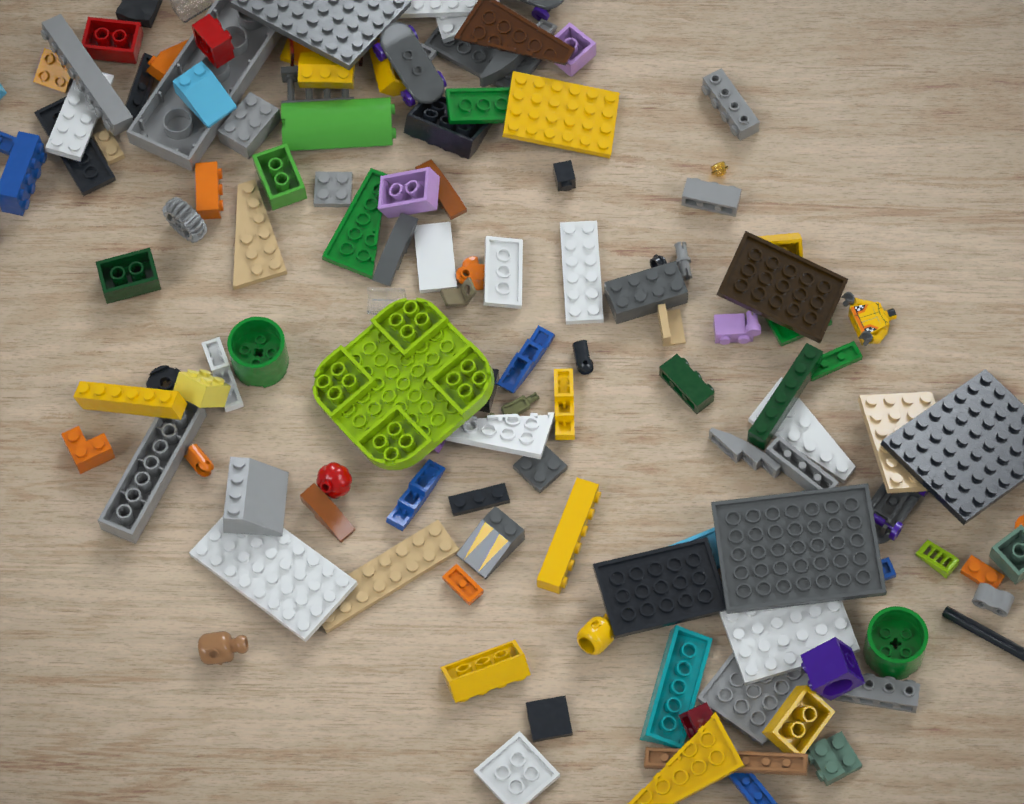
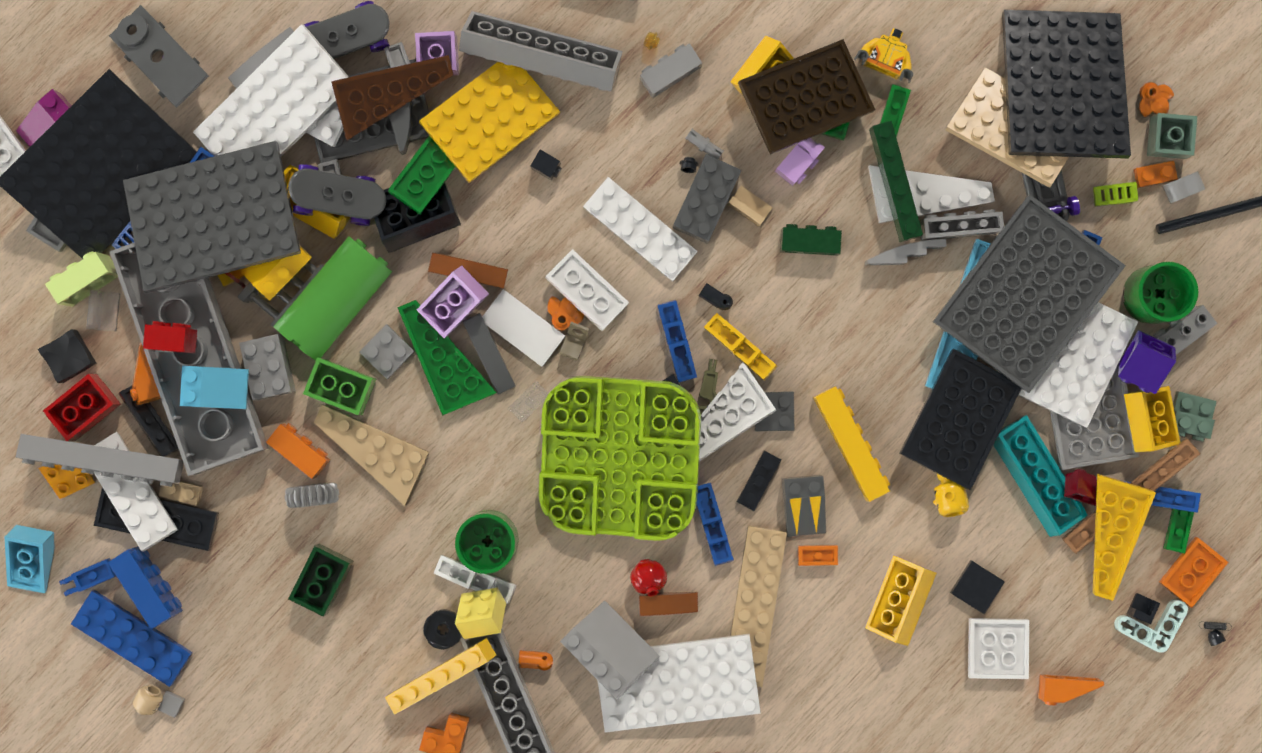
camera: 55 degrees left, 25 degrees up
(638, 106) = (540, 51): none -> light grey brick

